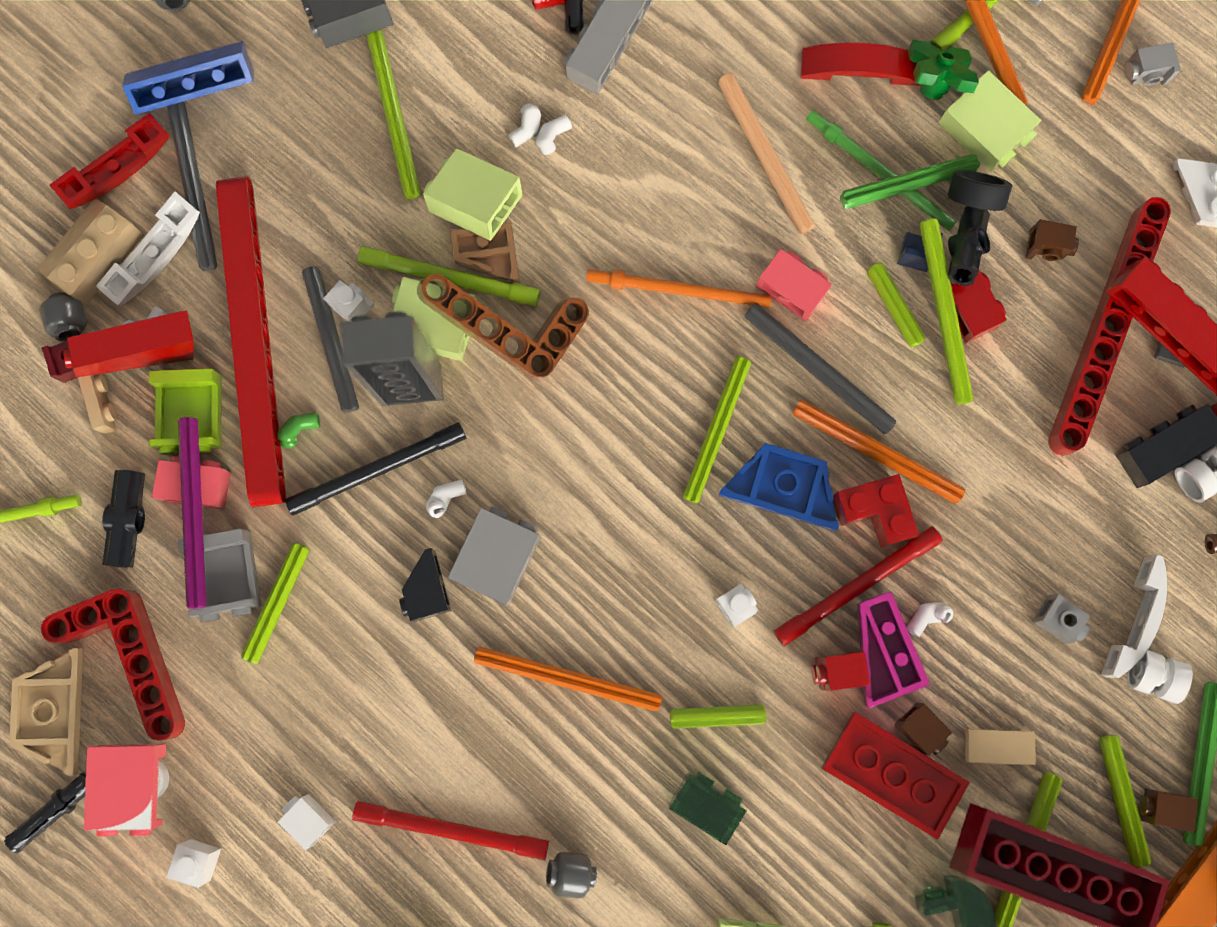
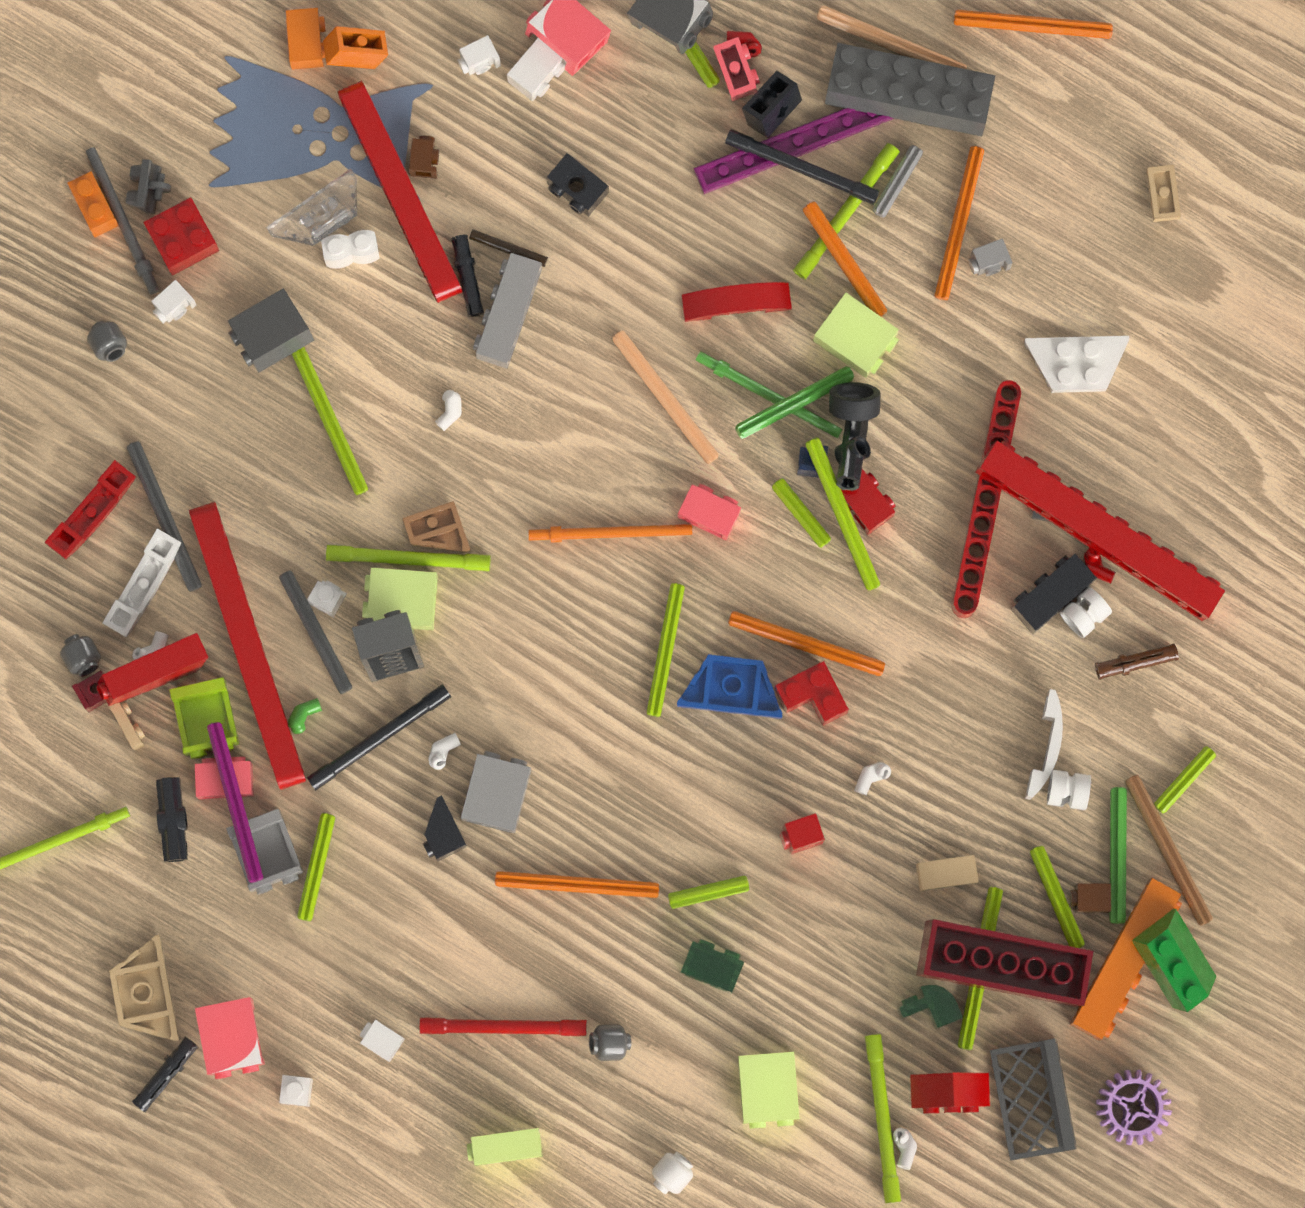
camera: 15 degrees left, 0 degrees up
(89, 251) = (86, 591): tan slope -> none
(129, 652) = (204, 929): red beam -> none
(188, 78) = (144, 422): blue brick -> none
(473, 194) = (416, 483): yellowish green brick -> none
(503, 330) = (467, 600): dark orange beam -> none
(548, 133) = (470, 414): white arm -> none
(737, 605) = (708, 796): white brick -> none
(801, 623) = (850, 721): red piece -> none
(820, 369) = (744, 581): dark grey axle -> none
(889, 651) = (838, 810): dark pink wedge -> none
(895, 775) = (863, 912): red plate -> none
(924, 729) = (881, 870): reddish brown brick -> none
(941, 69) = (805, 298): green plant -> none
(1052, 240) = (926, 433): reddish brown brick -> none
(1052, 615) = (973, 758): light grey brick -> none

